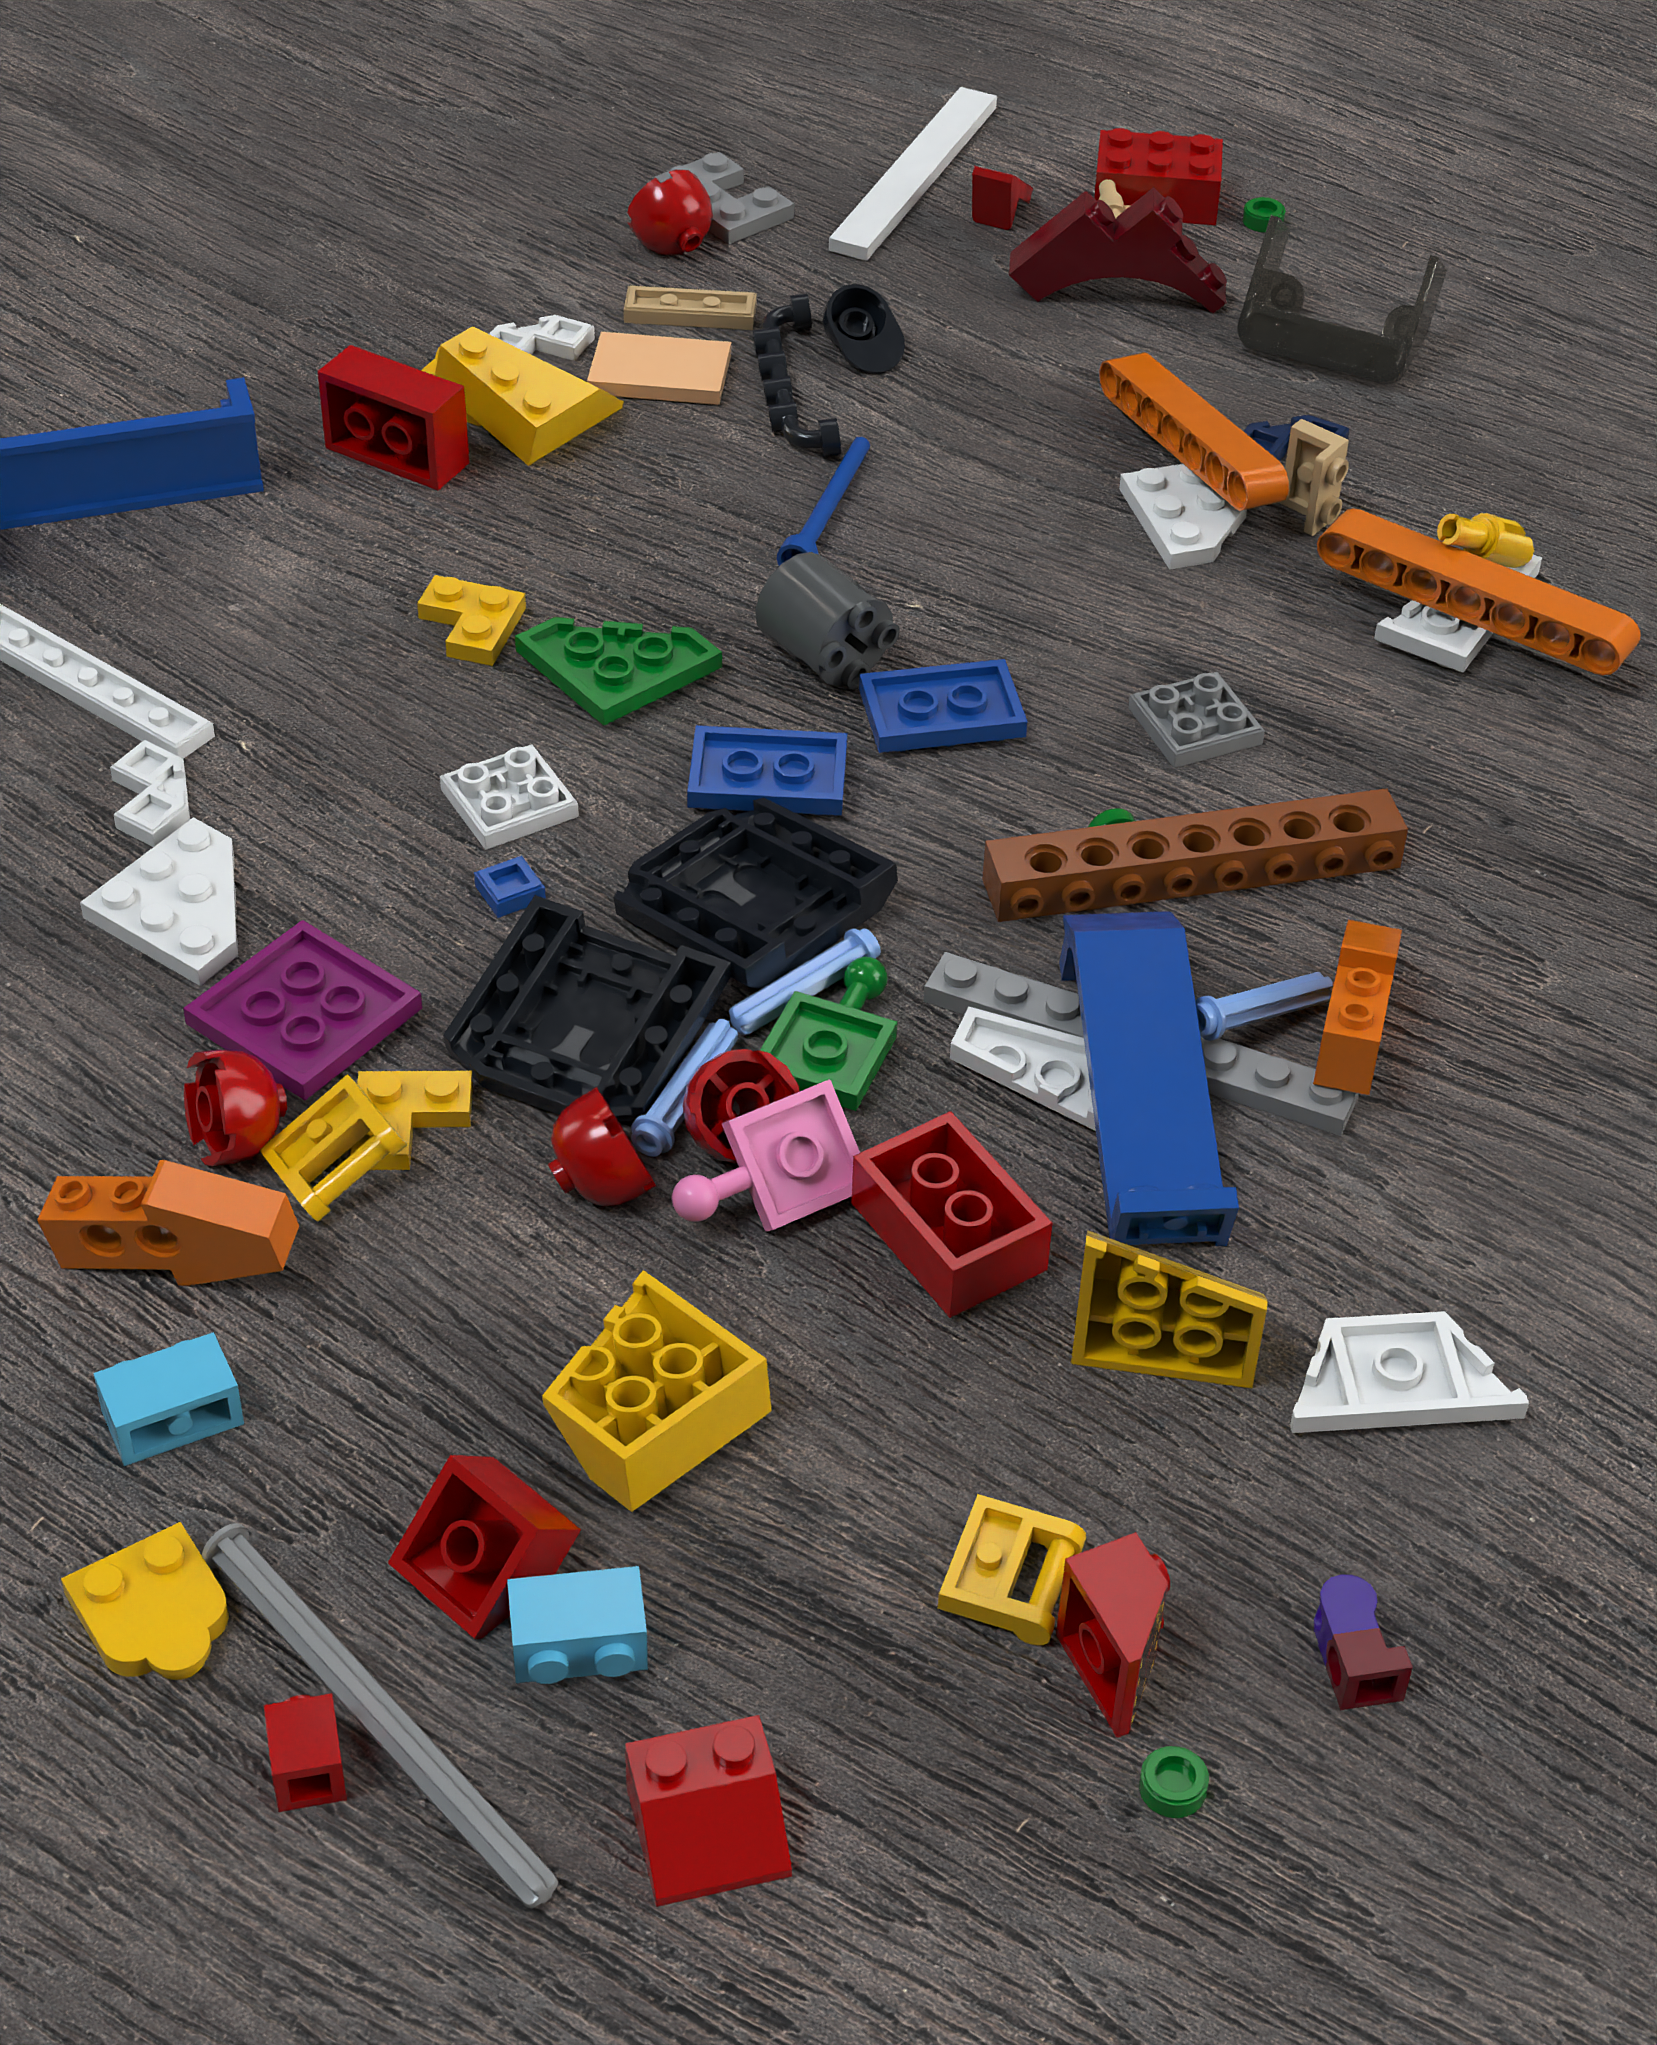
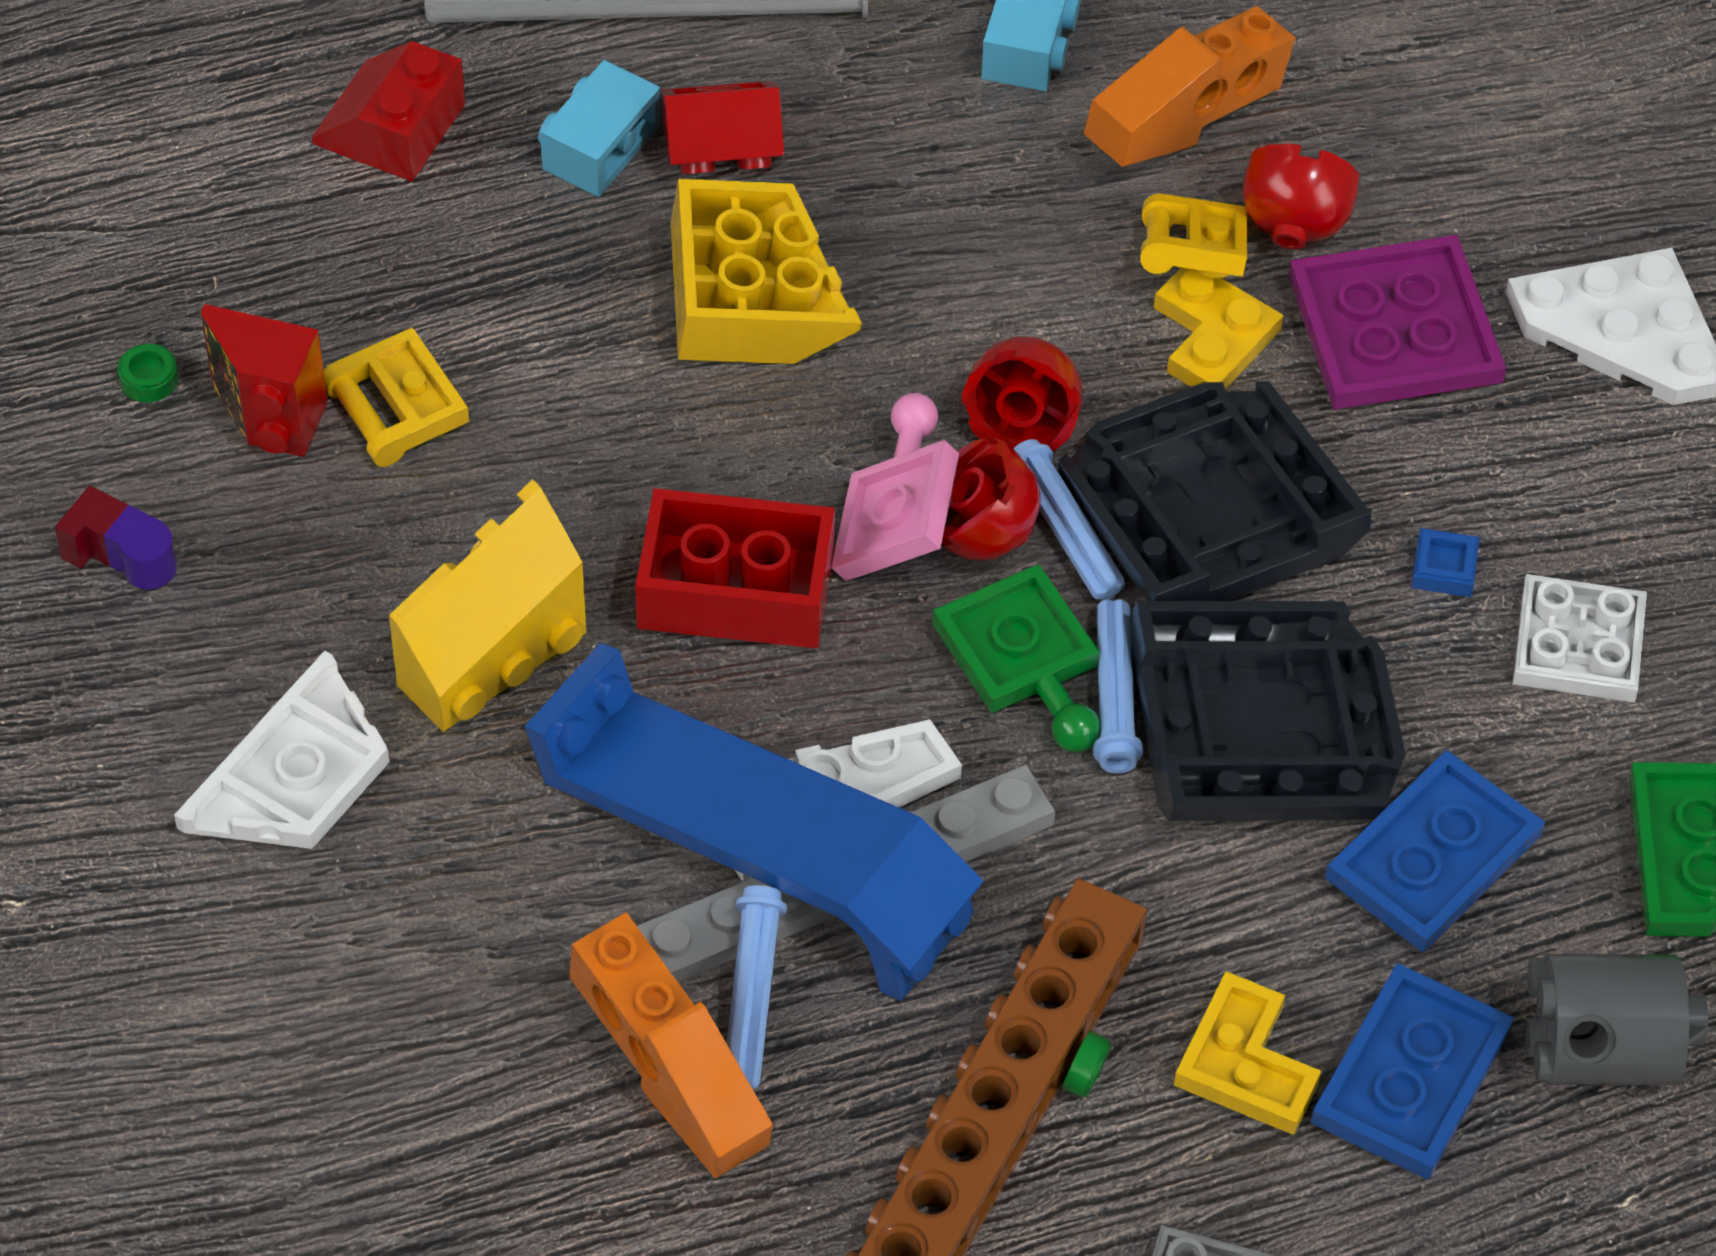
camera: 130 degrees right, 10 degrees up
(1026, 781) = (1232, 1066): none -> yellow plate

